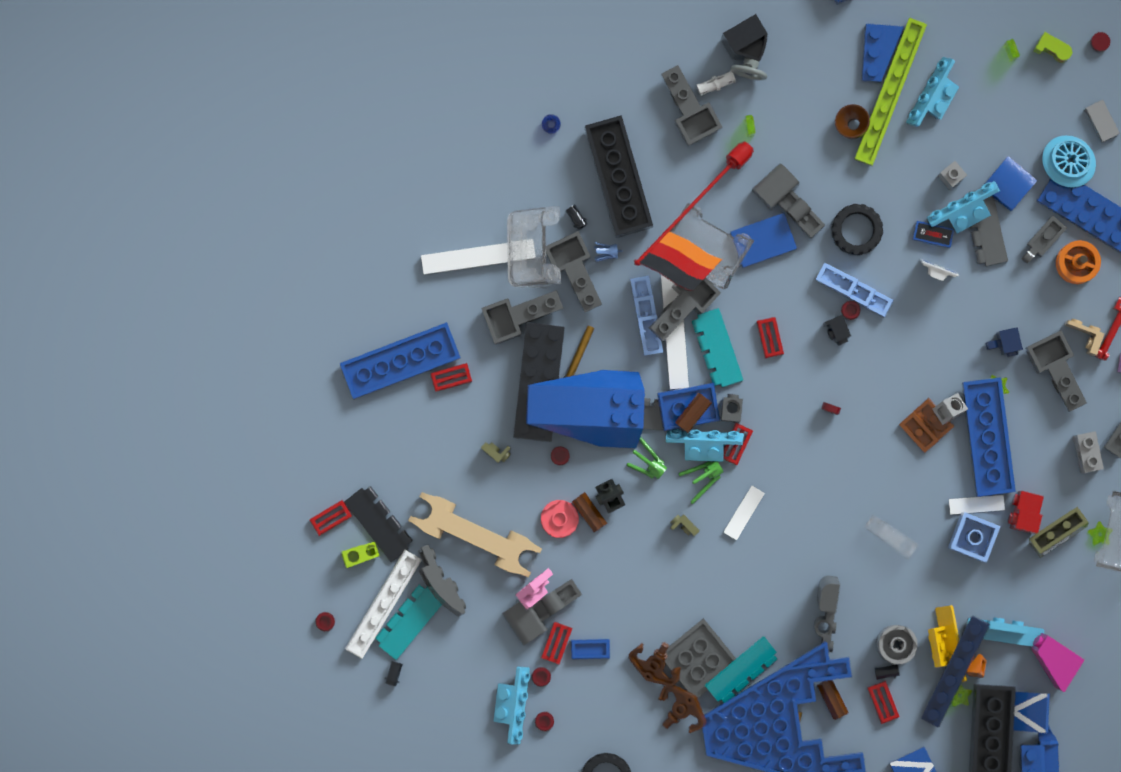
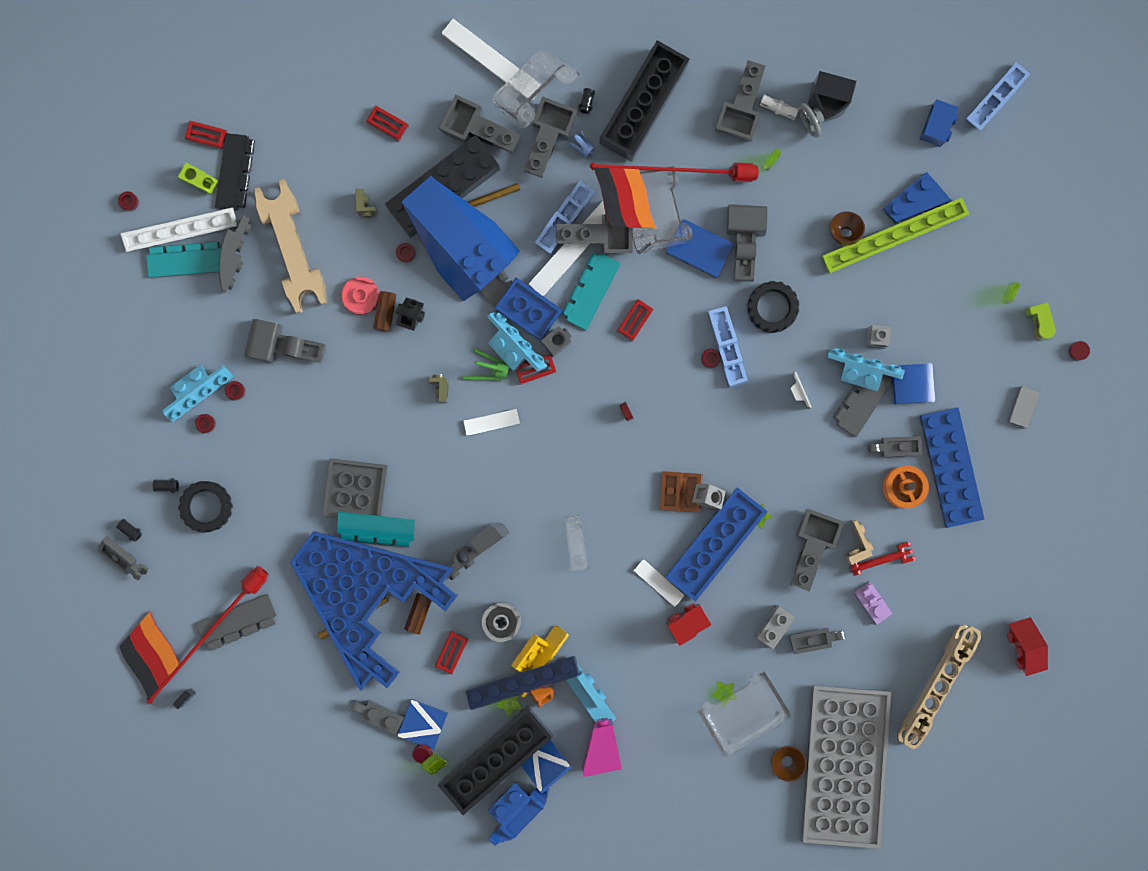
camera: 45 degrees right, 0 degrees up
(393, 674) = (136, 284): black pin -> none
(400, 360) = (363, 75): blue plate -> none
(534, 590) = (289, 324): bright pink bracket -> none
(548, 118) = (635, 14): clear blue plate -> none
(551, 658) = (254, 384): red tile -> none
(590, 649) = (288, 406): blue tile -> none
(653, 667) = (317, 462): reddish brown piece -> none
(655, 468) = (461, 328): bright green plant -> none
(685, 705) = (309, 512): reddish brown piece -> none
(693, 412) = (526, 314): reddish brown axle -> none
(838, 330) = (687, 362): black brick -> none
(887, 672) = (475, 634): black pin -> none
(934, 235) = (823, 365): tile -> none
(936, 94) = (926, 270): medium azure bracket -> none
(973, 537) = (632, 603): light blue brick -> none
(1008, 342) = (798, 492): dark blue brick -> none
(1058, 175) = (954, 411): medium azure piece -> none
(1058, 532) = (696, 661): olive brick -> none

